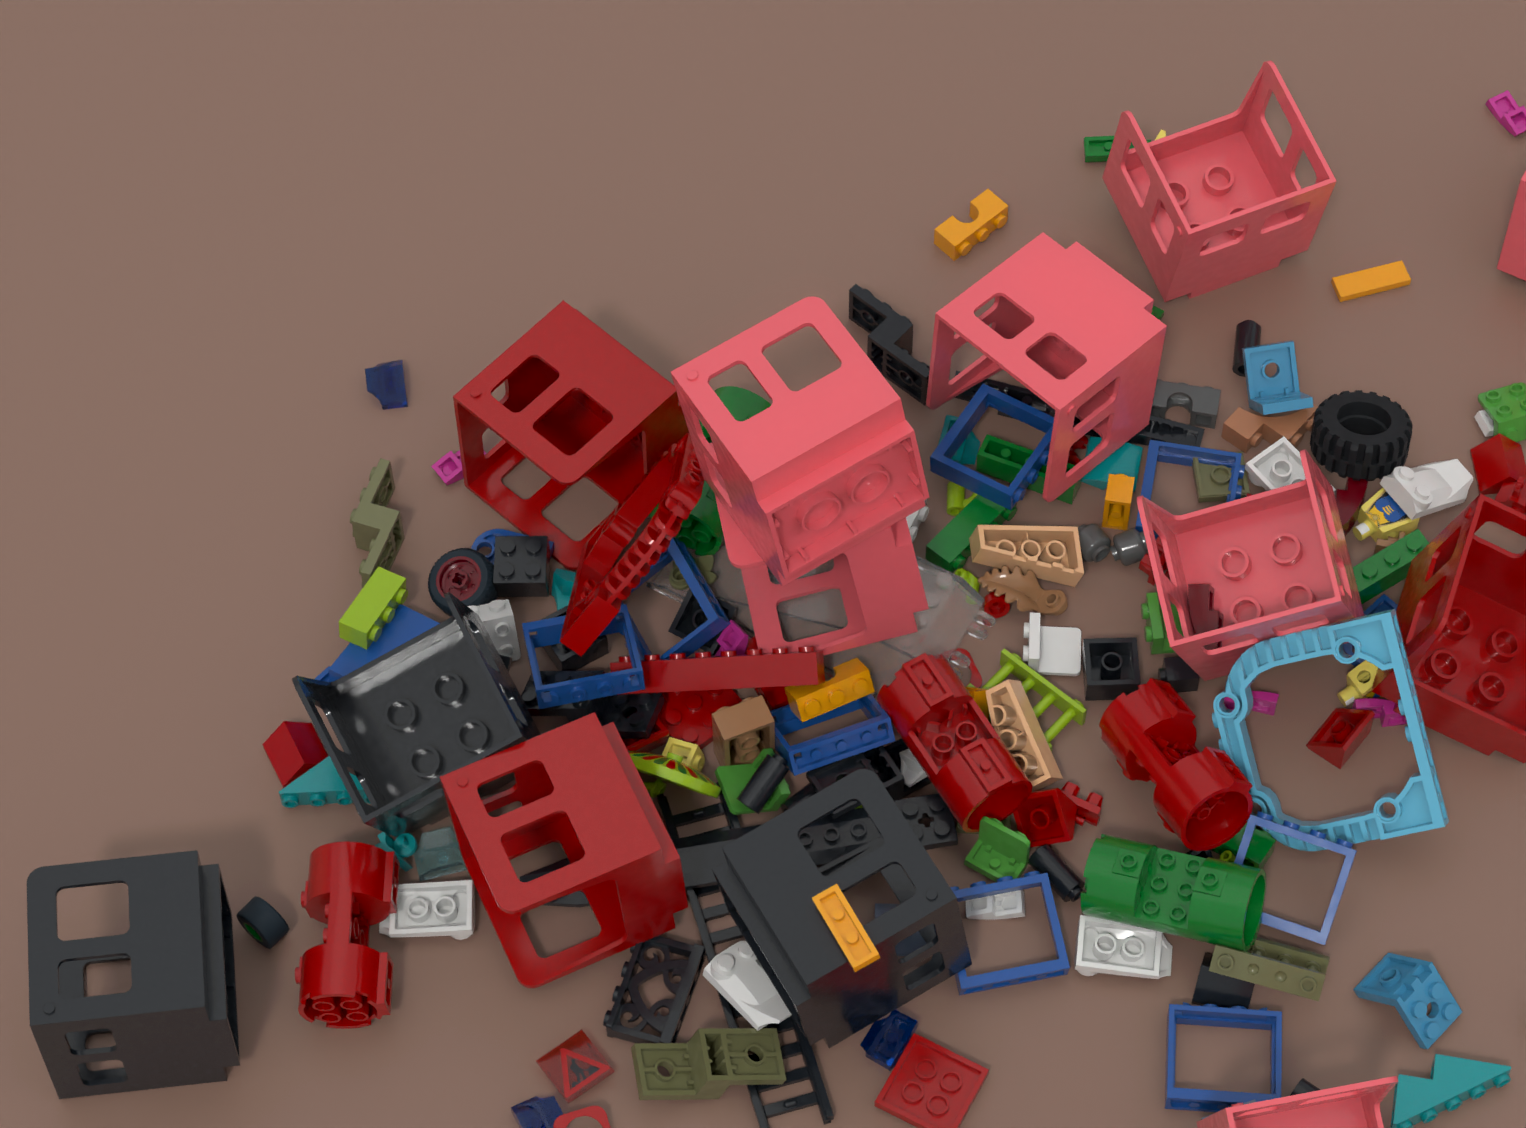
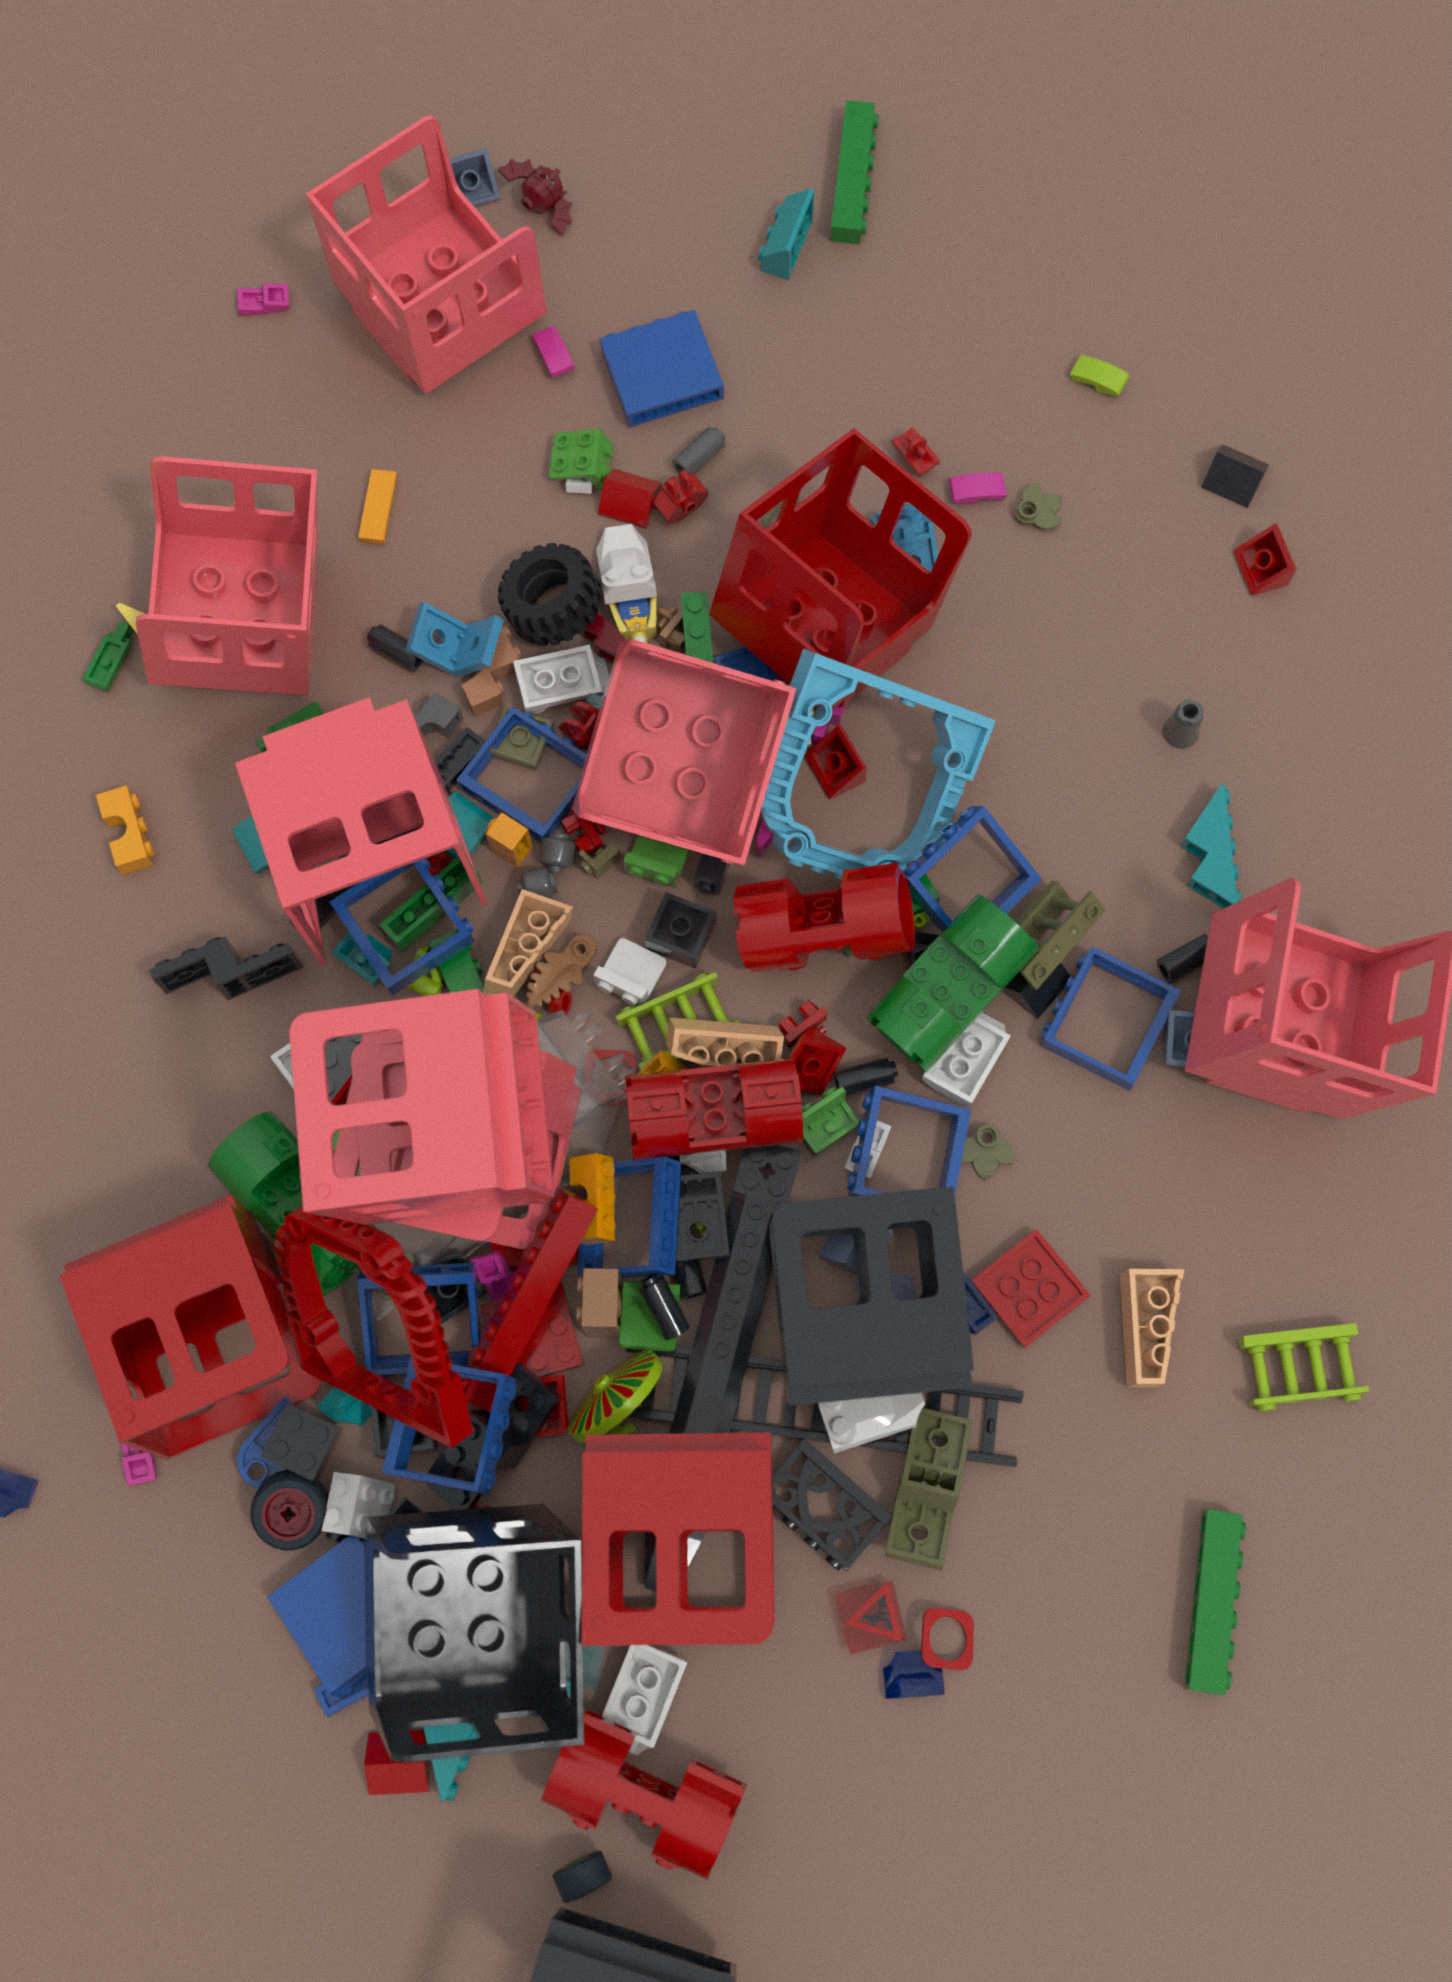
camera: 65 degrees left, 15 degrees up
(373, 608) = (281, 1618): lime brick -> none
(375, 525) = (180, 1574): olive bracket -> none
(690, 752) = (586, 1371): light yellow bracket -> none
(846, 927) = (939, 1306): light orange plate -> none
(1037, 1004) = (987, 1155): none -> olive plate
(1137, 583) = (602, 861): none -> olive bracket
(1201, 611) = (682, 822): dark red slope -> none
(1410, 987) = (1123, 825): dark azure bracket -> none

